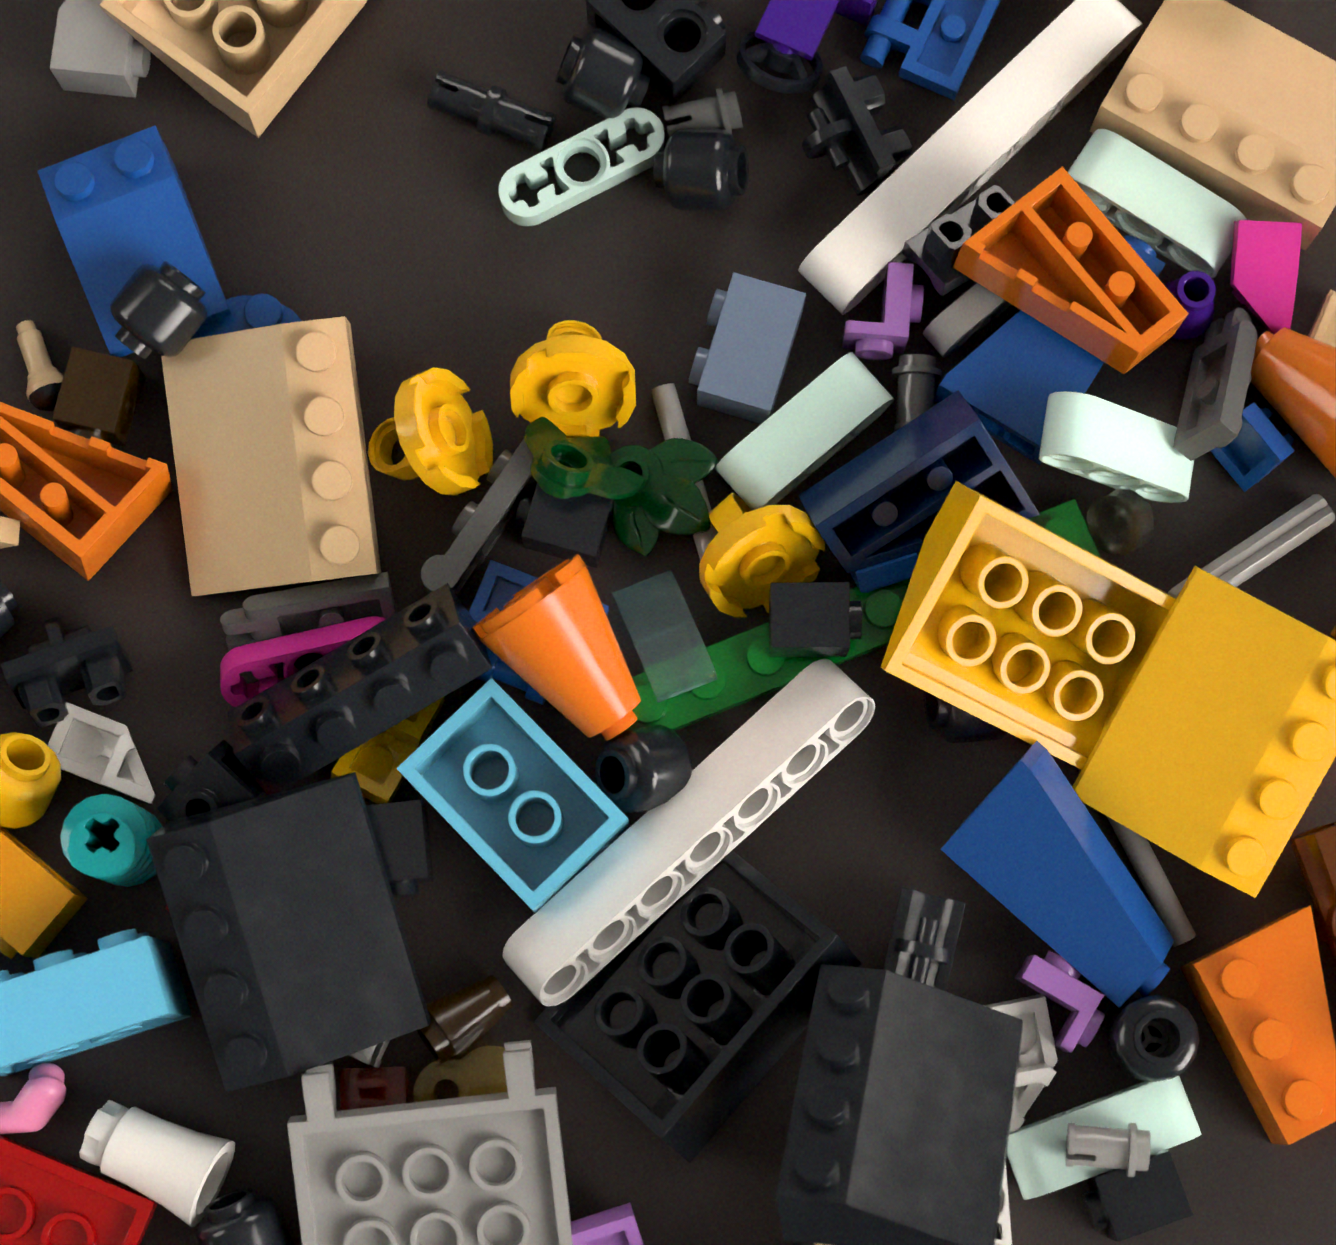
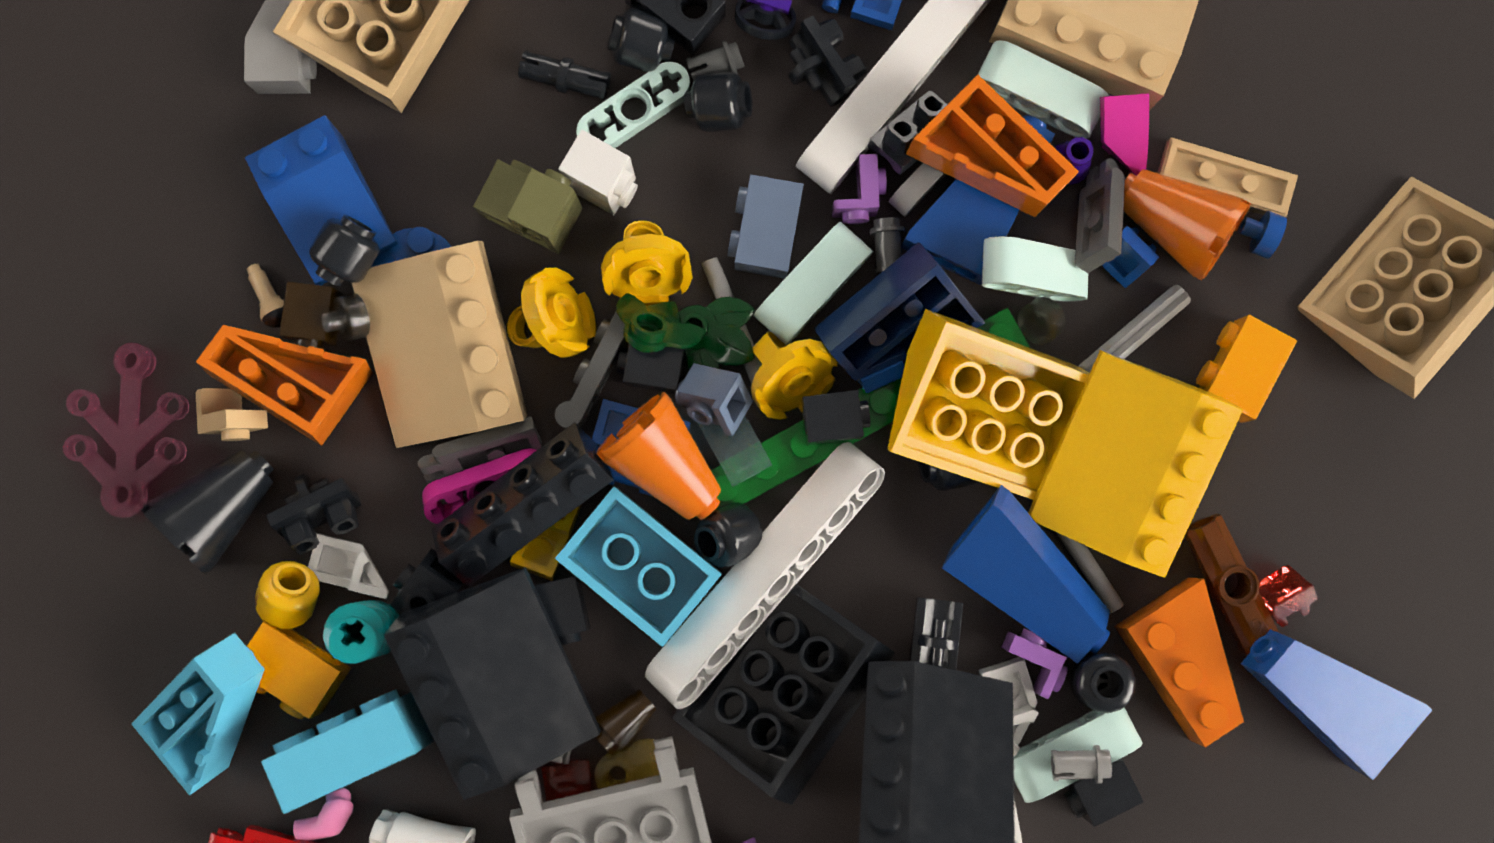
camera: 10 degrees left, 5 degrees up
(150, 405) = (348, 317): none -> clear smoke tile
(423, 279) = (530, 203): none -> olive brick
(523, 247) = (599, 173): none -> white brick
(647, 573) = (714, 397): none -> sand blue brick

